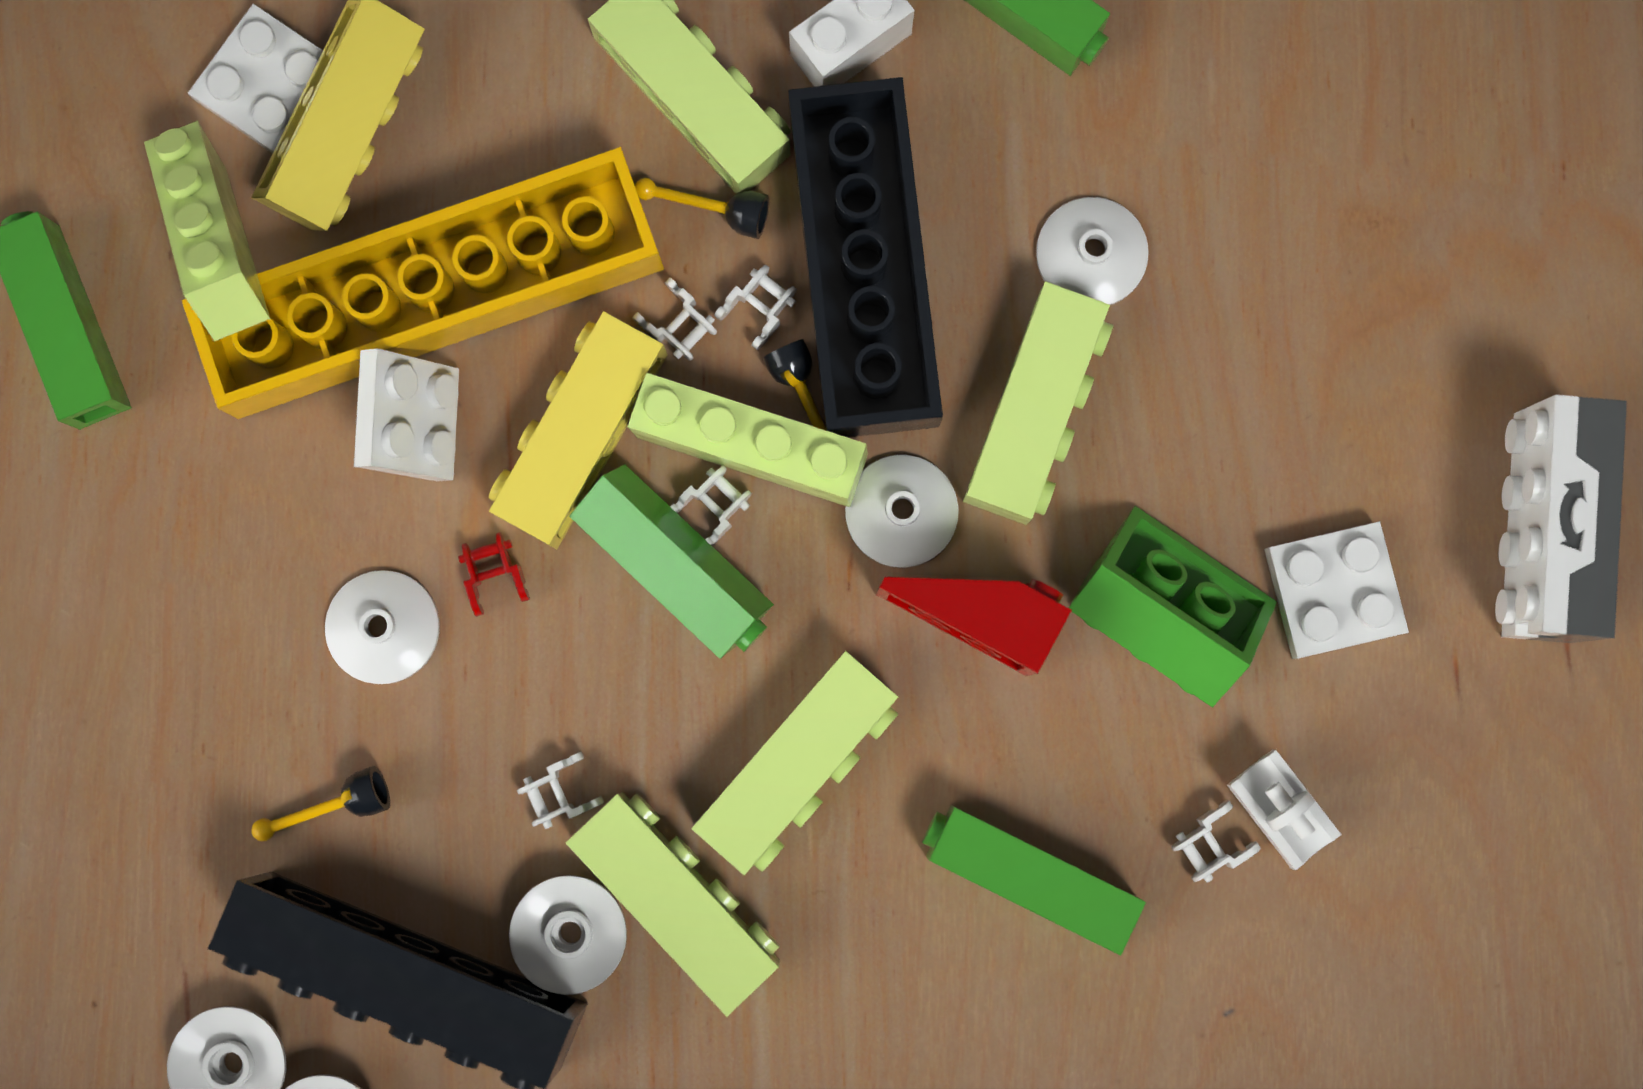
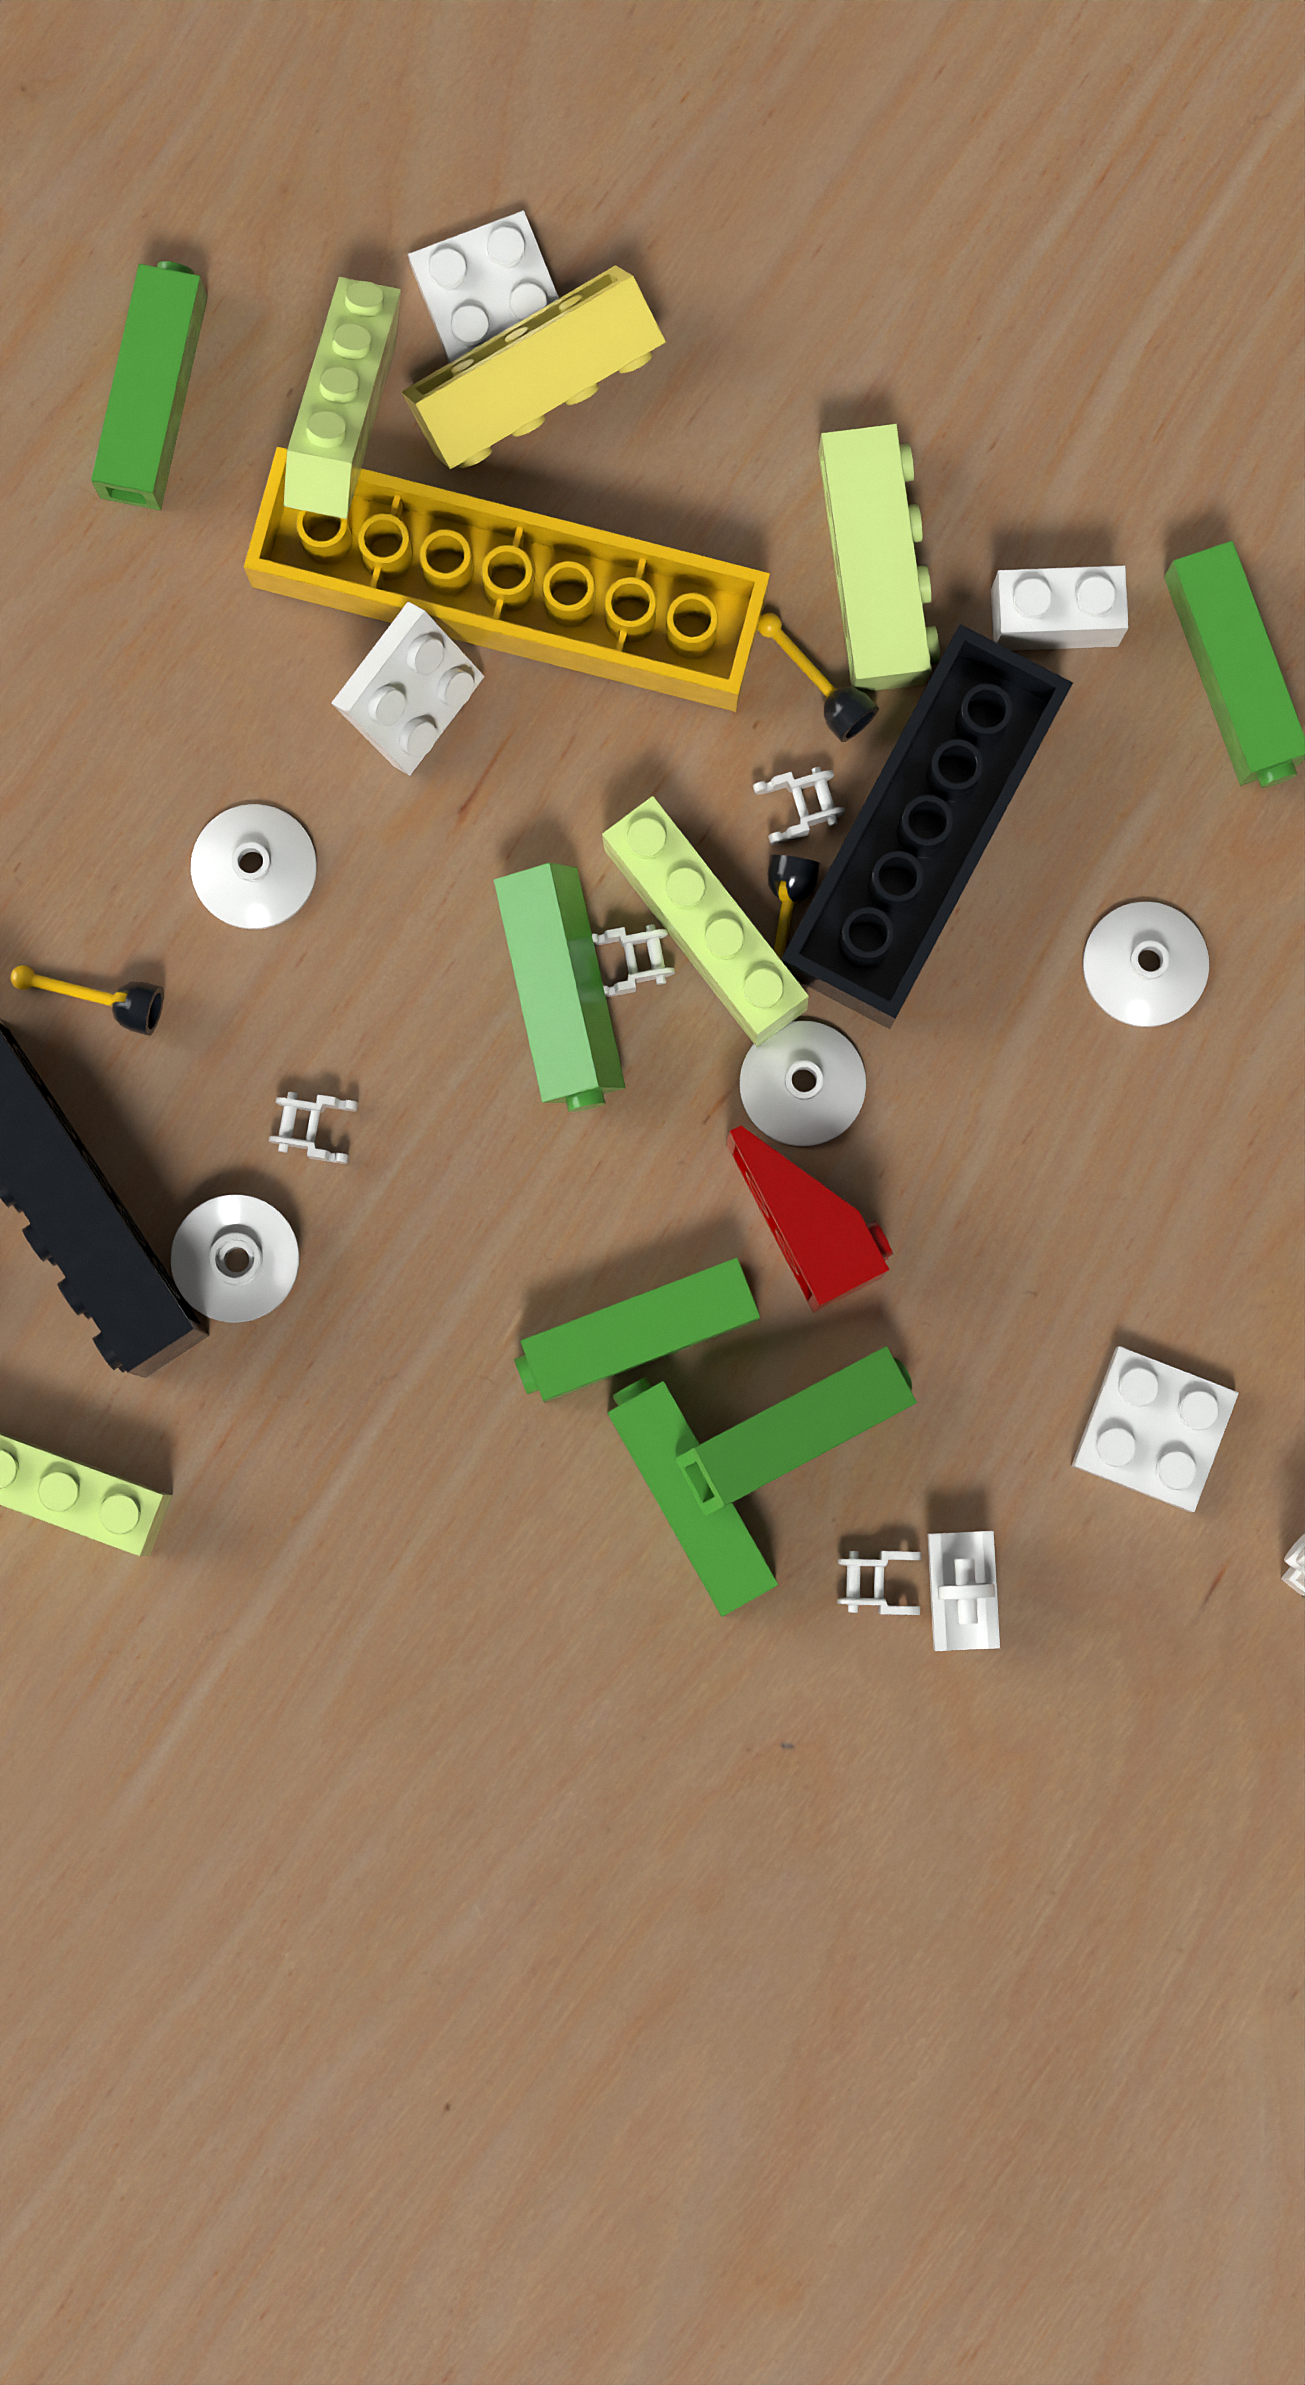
camera: 30 degrees right, 0 degrees up
(470, 556) = (396, 861): red piece -> none
(578, 429) = (555, 807): light yellow brick -> none
(675, 902) = (351, 1294): yellowish green brick -> none
(682, 348) = (690, 769): white piece -> none
(795, 763) = (547, 1245): yellowish green brick -> none
(907, 782) = (637, 1331): none -> bright green brick
(1037, 403) = (993, 1068): yellowish green brick -> none
(1080, 777) = (796, 1430): none -> bright green brick
(1174, 607) = (991, 1338): bright green slope -> none

